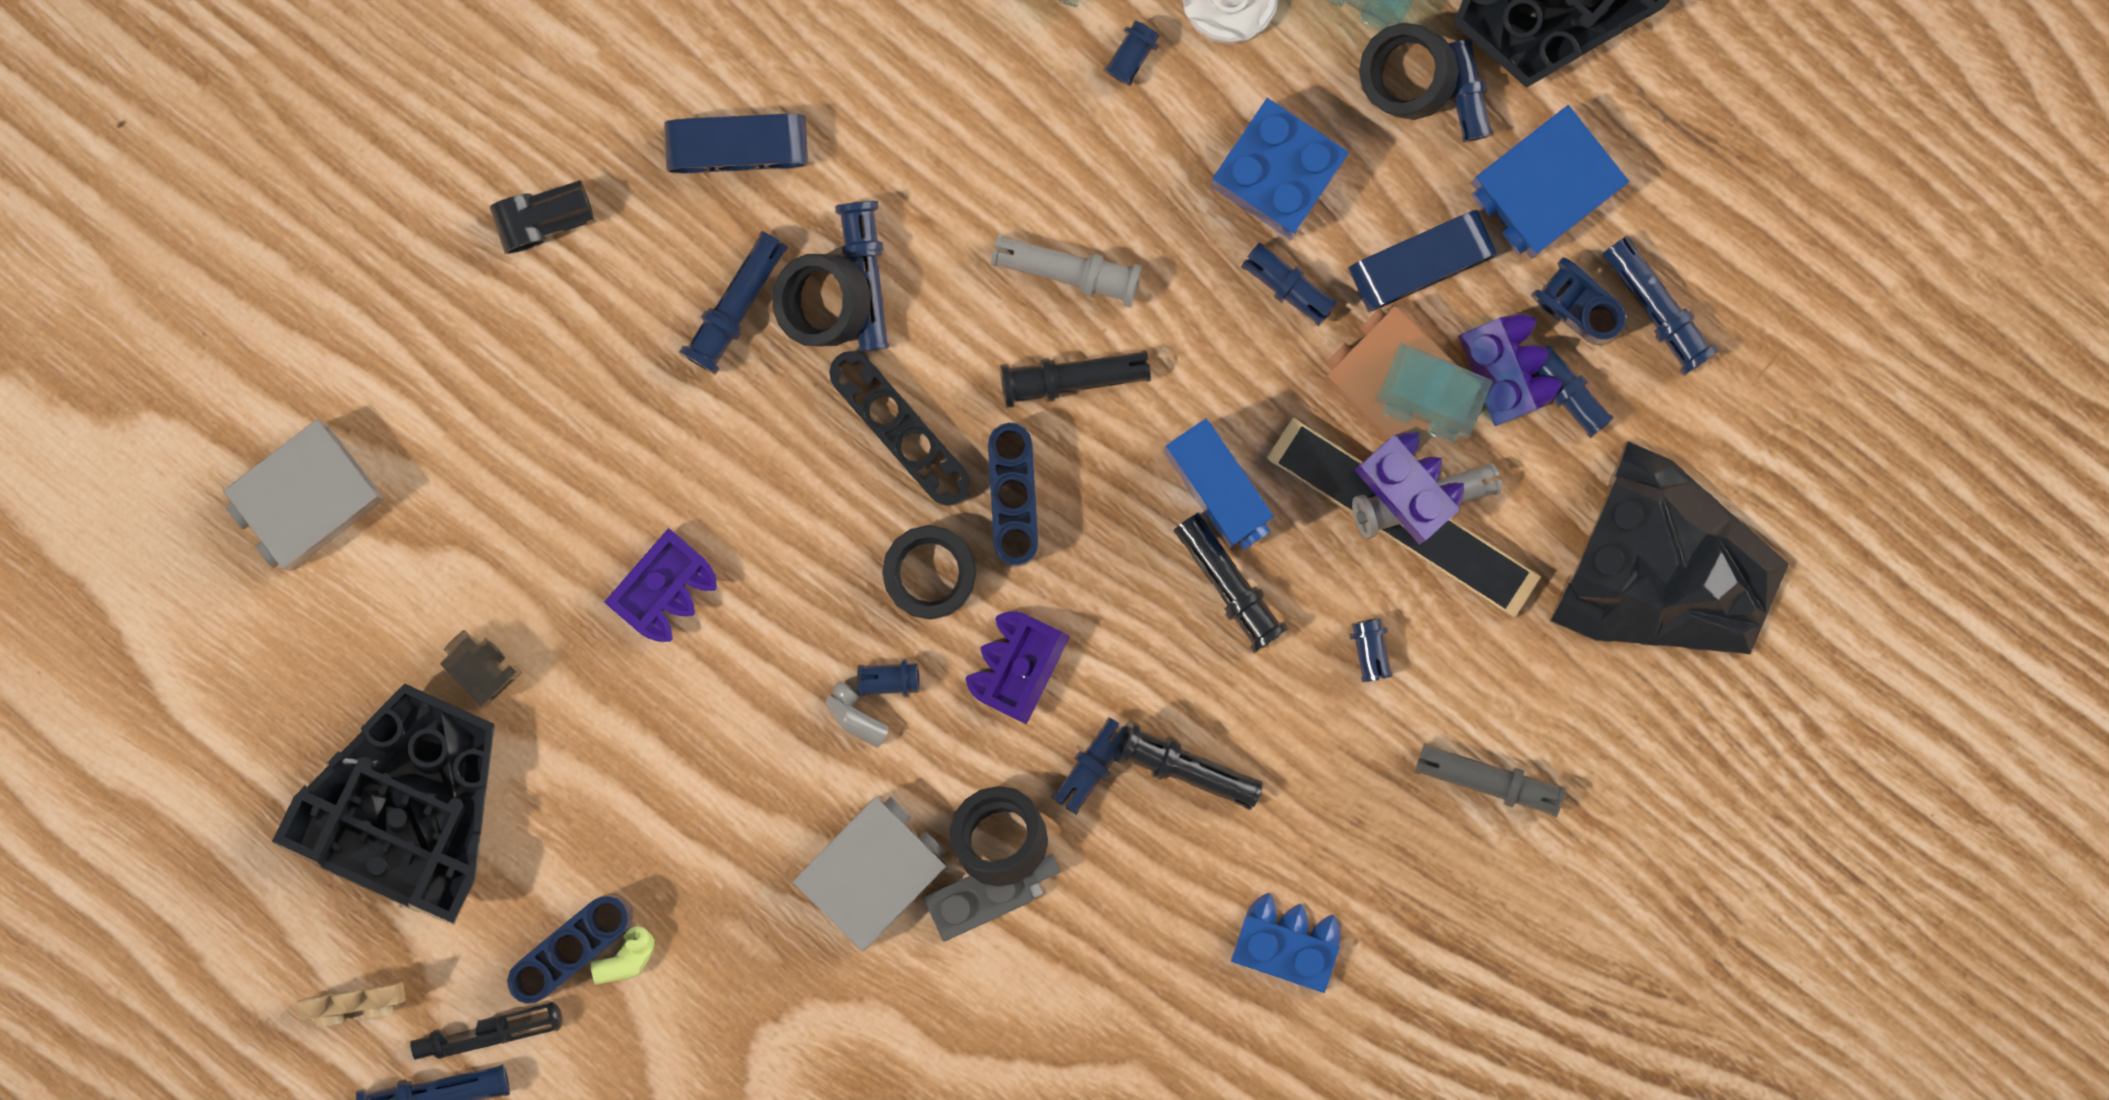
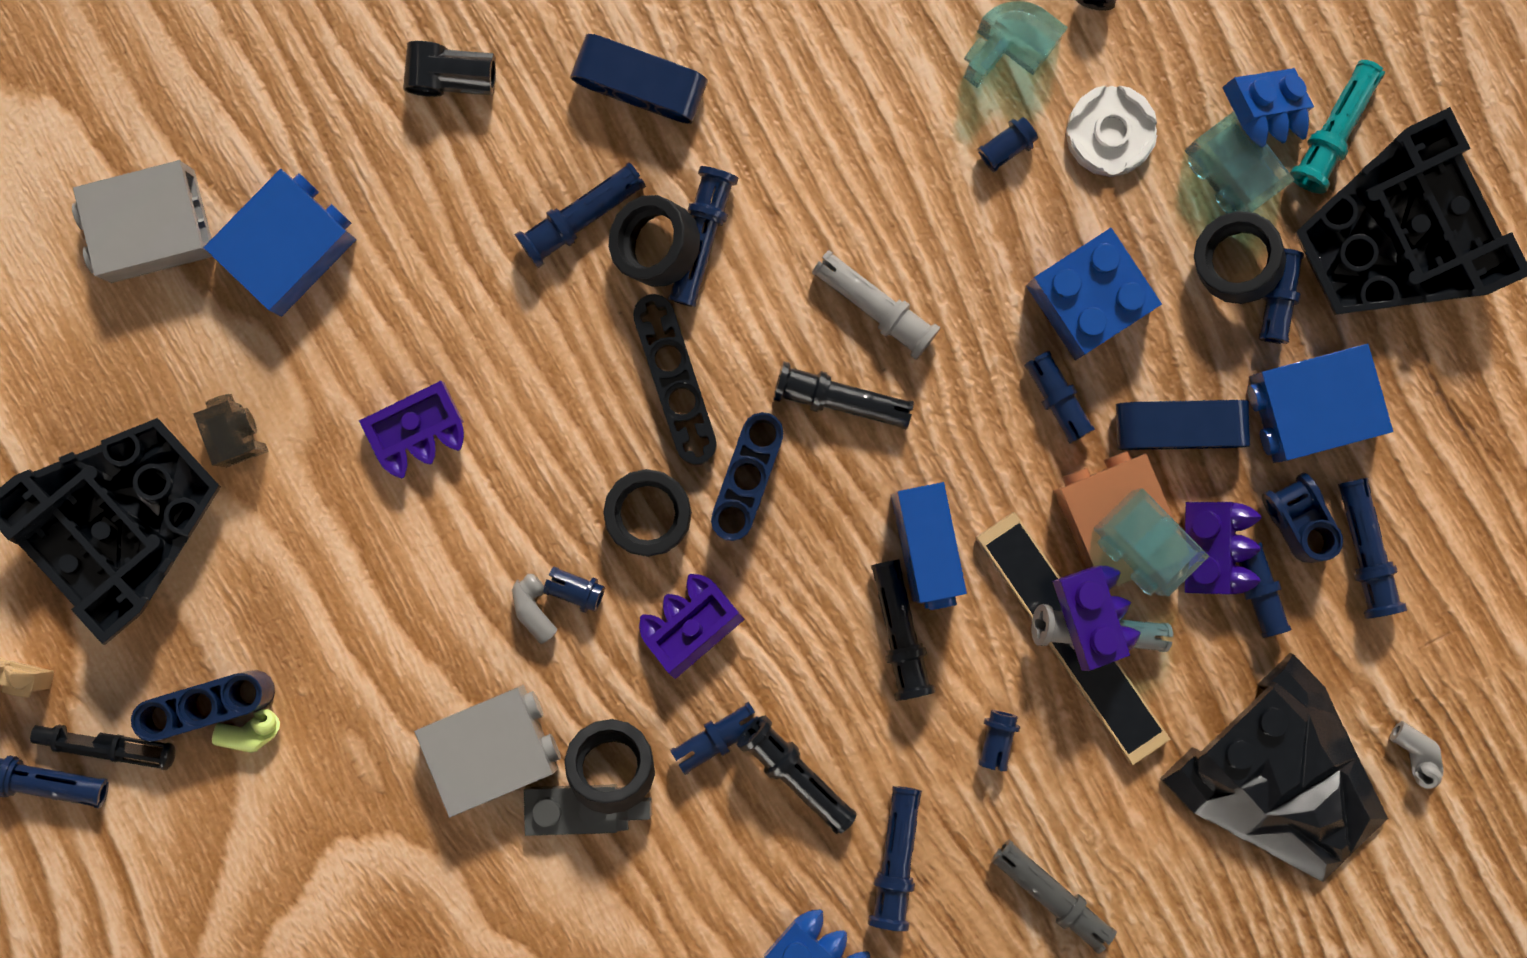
camera: 20 degrees right, 0 degrees up
(450, 456) = (281, 241): none -> blue brick
(1327, 830) = (894, 880): none -> dark blue pin
(1797, 485) = (1423, 753): none -> light grey arm

